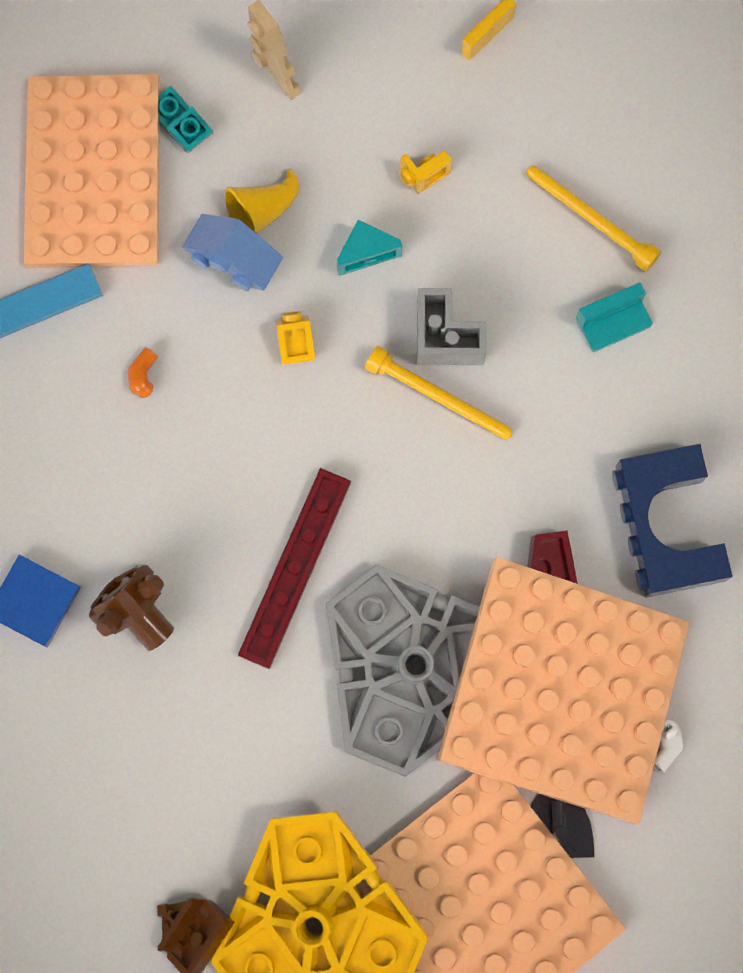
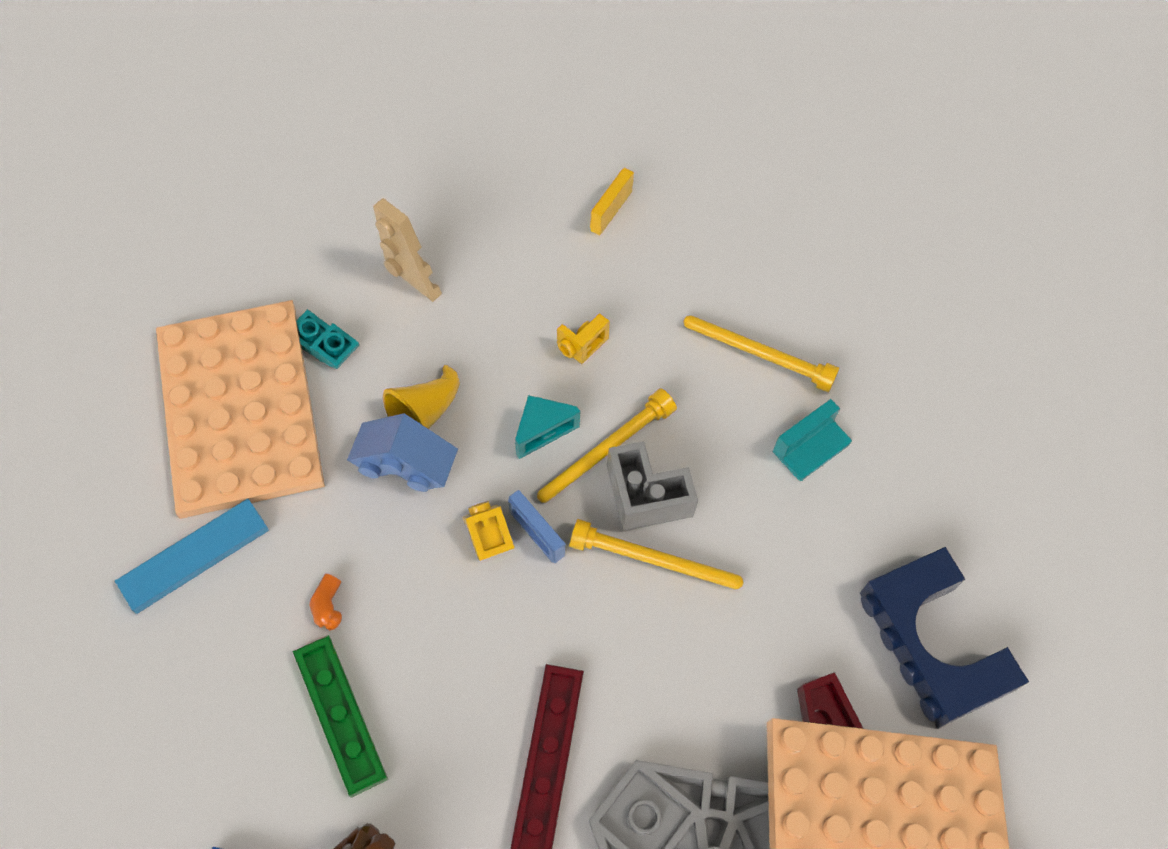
camera: 15 degrees left, 15 degrees down
(137, 471) = (340, 716): none -> green tile
(338, 345) = (536, 527): none -> medium blue tile
(478, 253) = (659, 406): none -> yellow piece

